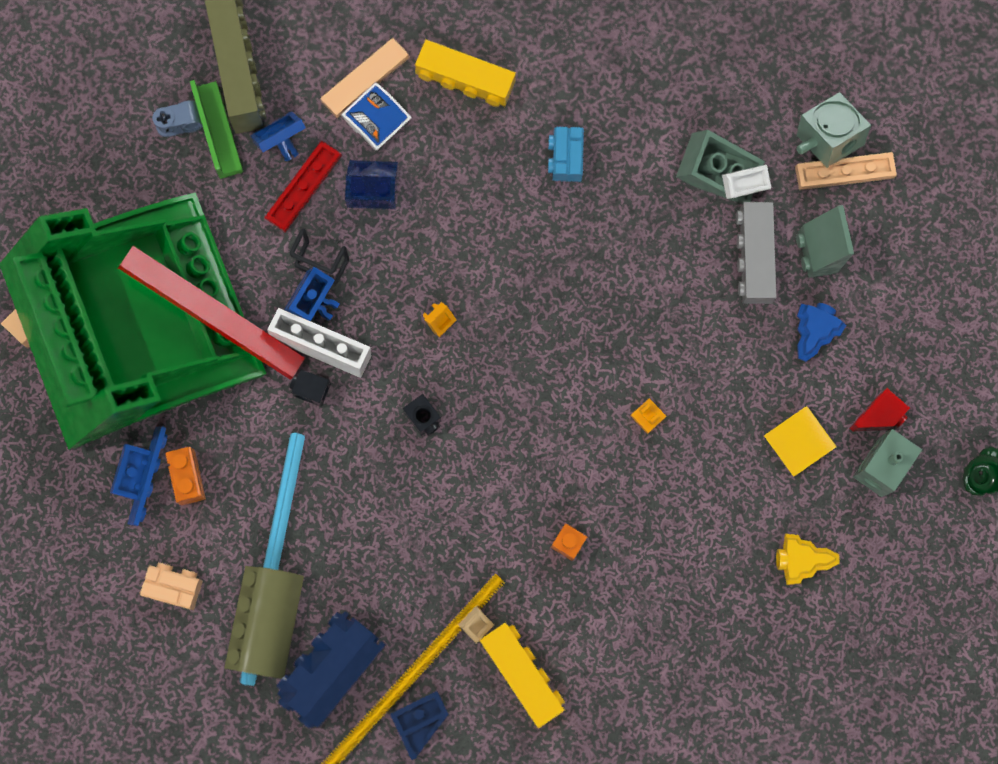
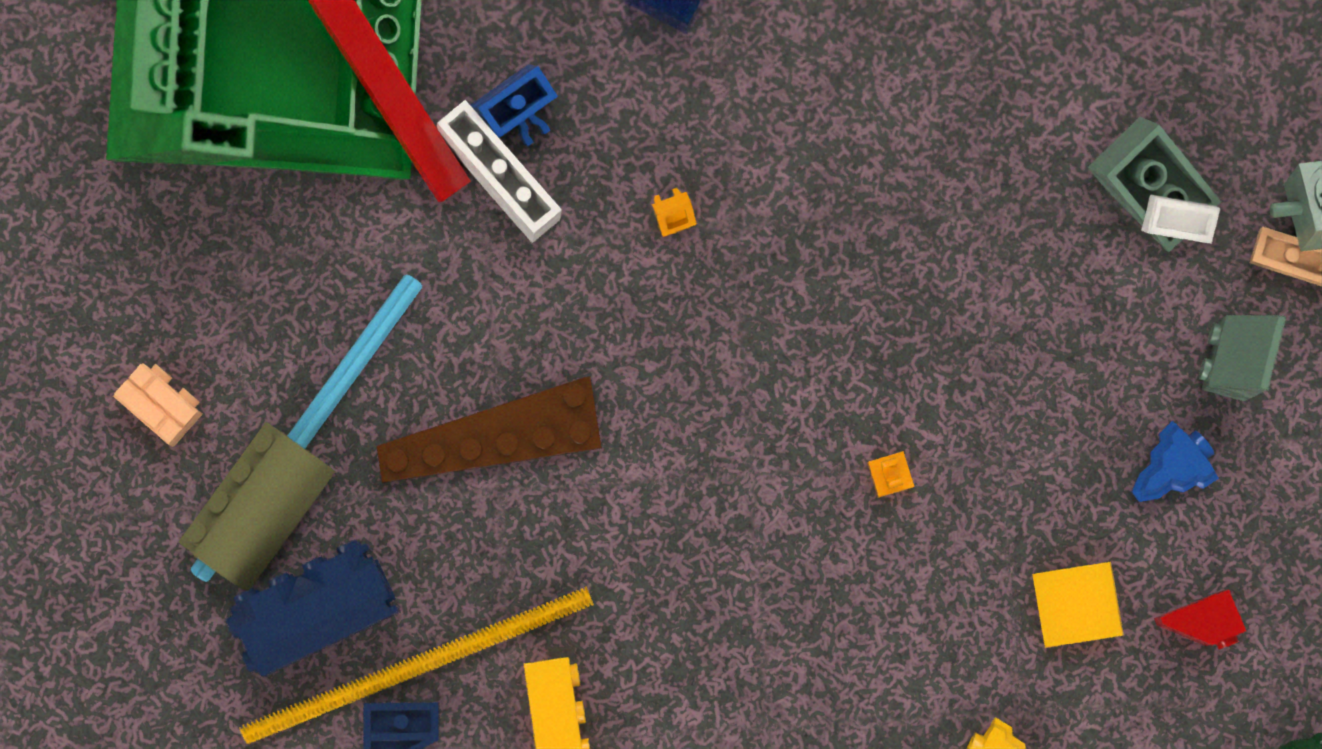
camera: 25 degrees right, 5 degrees up
(136, 472) = (180, 232): blue bracket -> none
(185, 476) = (242, 266): orange brick -> none
(299, 257) = (530, 58): black piece -> none
(310, 387) = (458, 225): black brick -> none
(409, 495) = (522, 430): none -> reddish brown wing
(419, 405) = (585, 317): black brick -> none
(476, 624) = (529, 641): tan tile -> none
(567, 154) = (954, 67): dark azure brick -> none
(568, 542) = (702, 591): orange brick -> none
(757, 253) = (1147, 323): light grey brick -> none
(887, 463) = (1177, 690): sand green piece -> none

